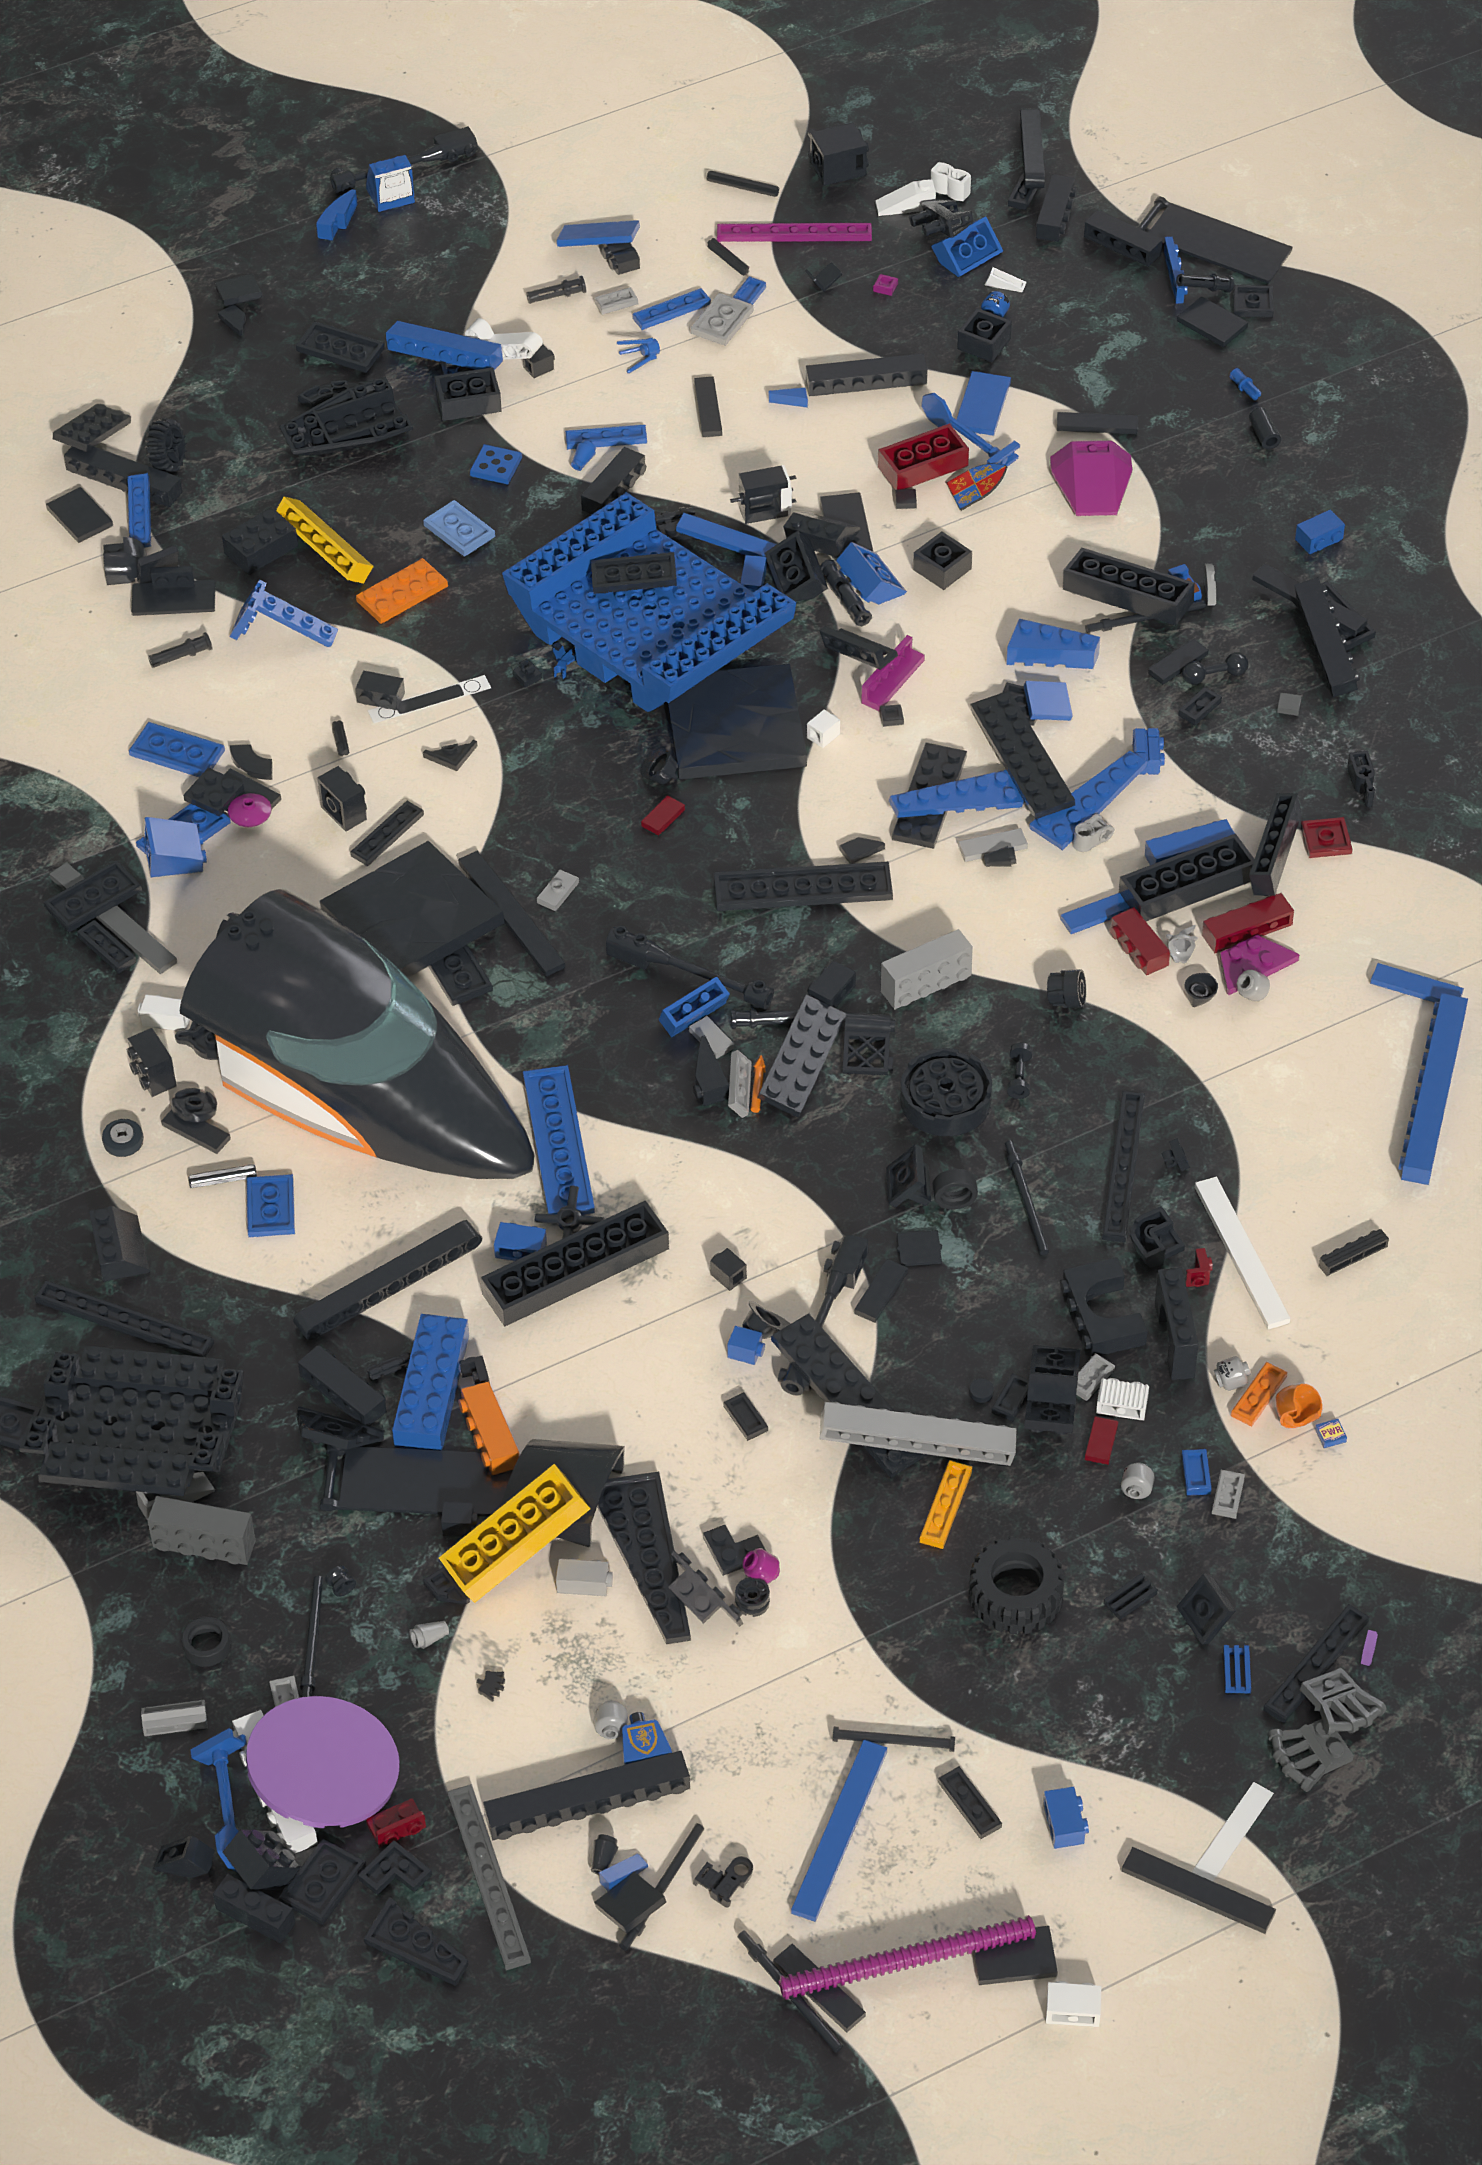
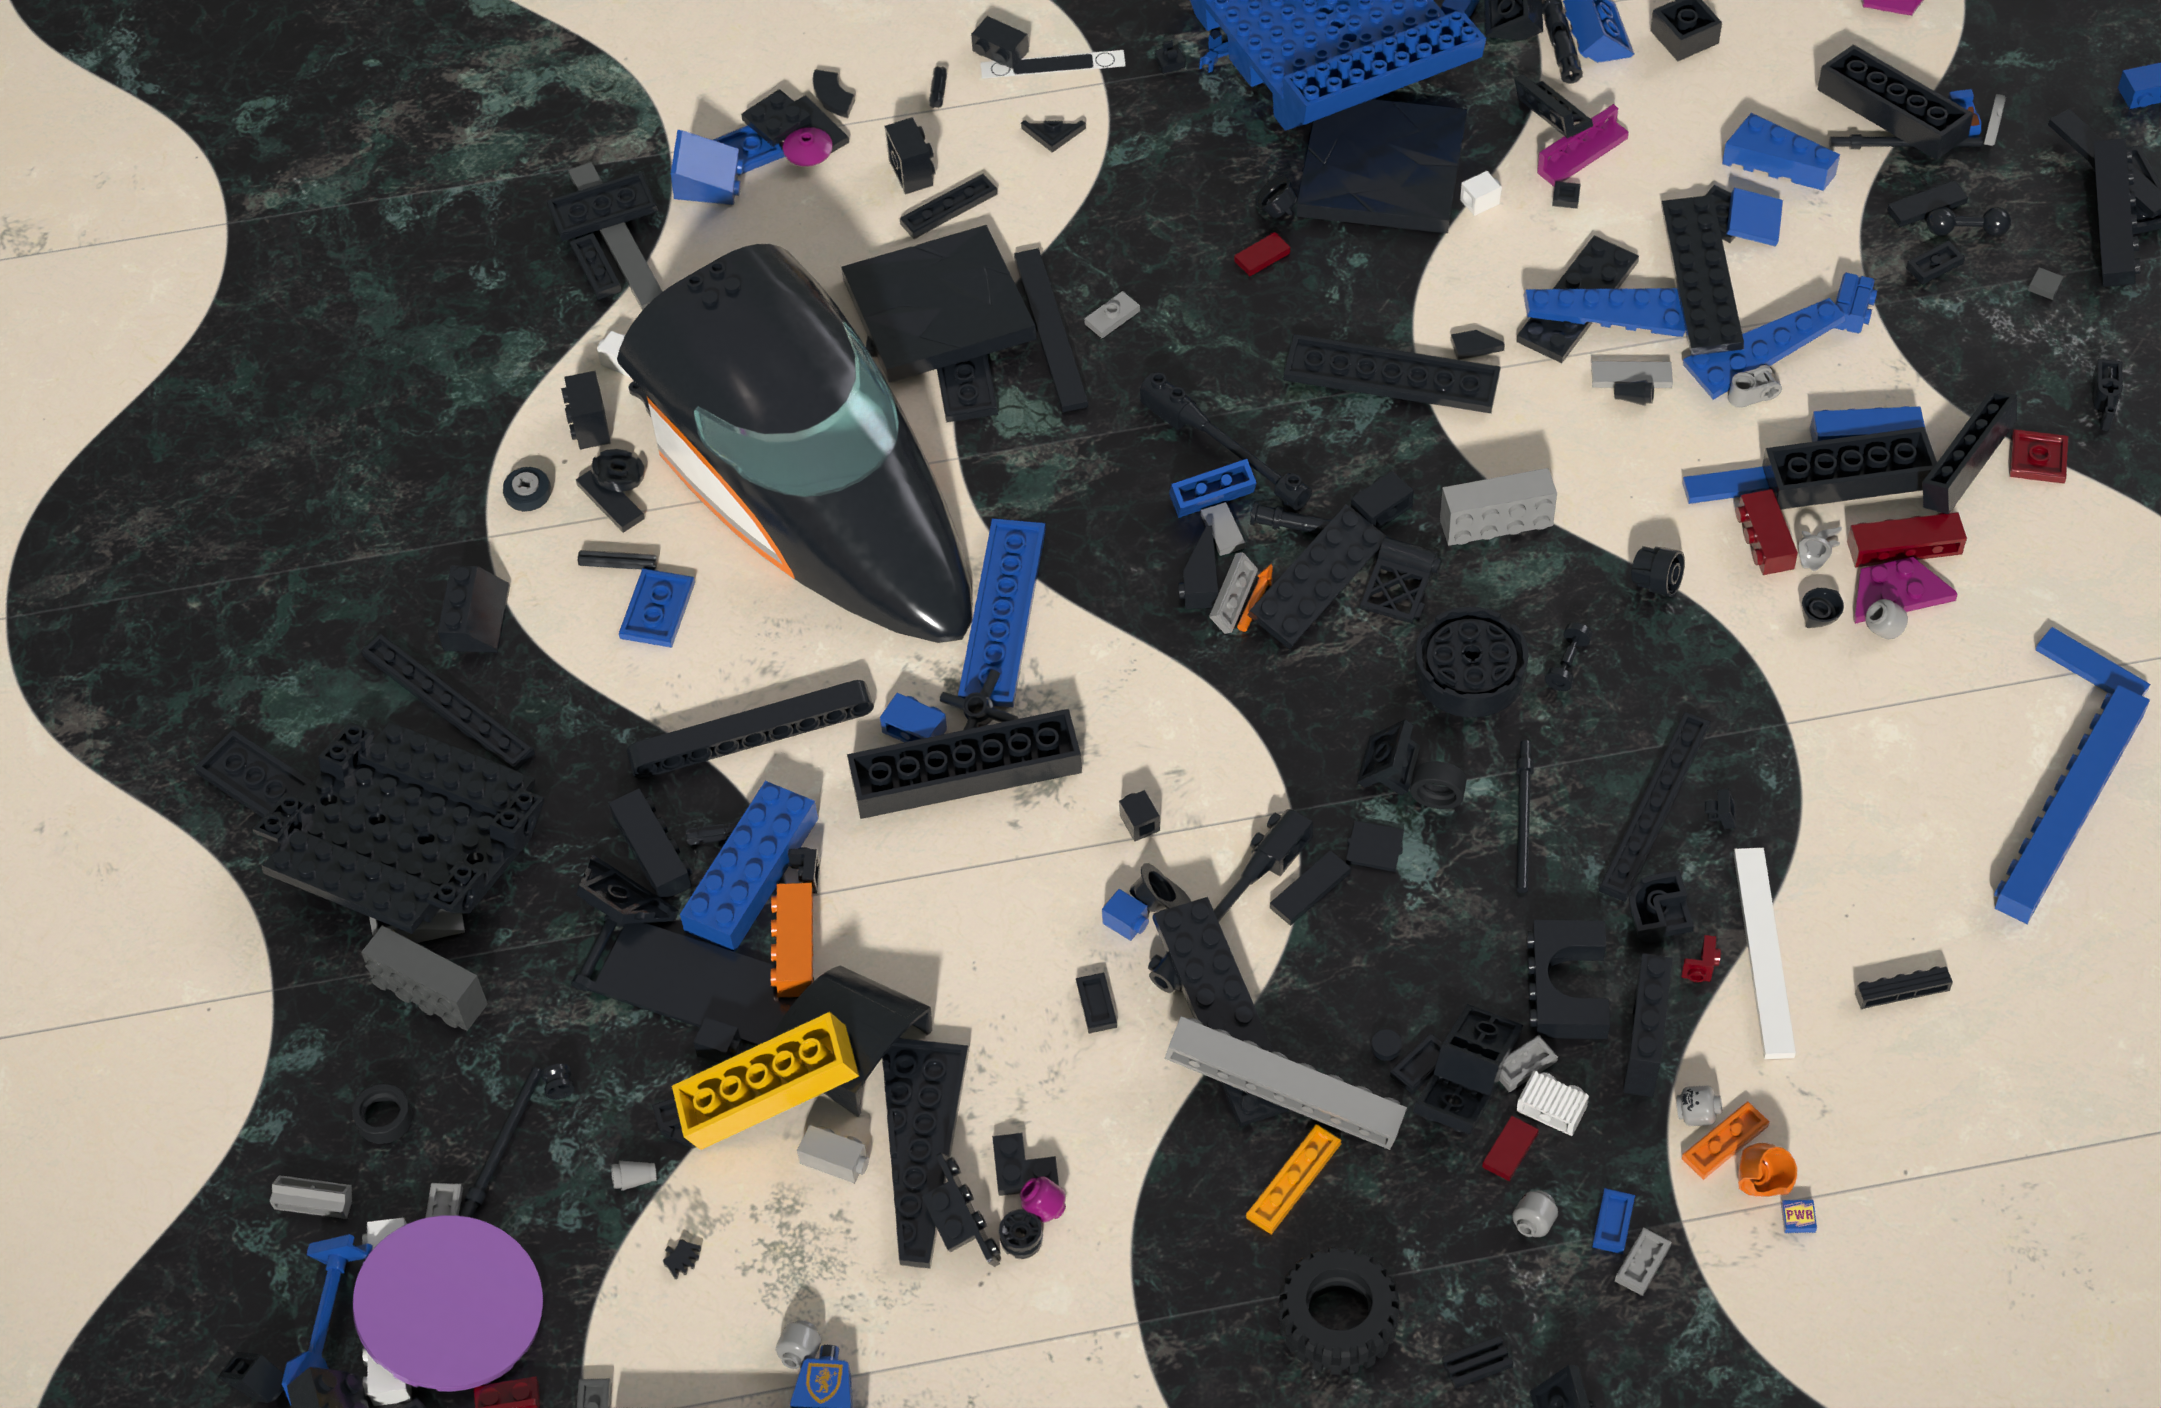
camera: 20 degrees right, 5 degrees up
(176, 750) = (757, 62): blue tile -> none

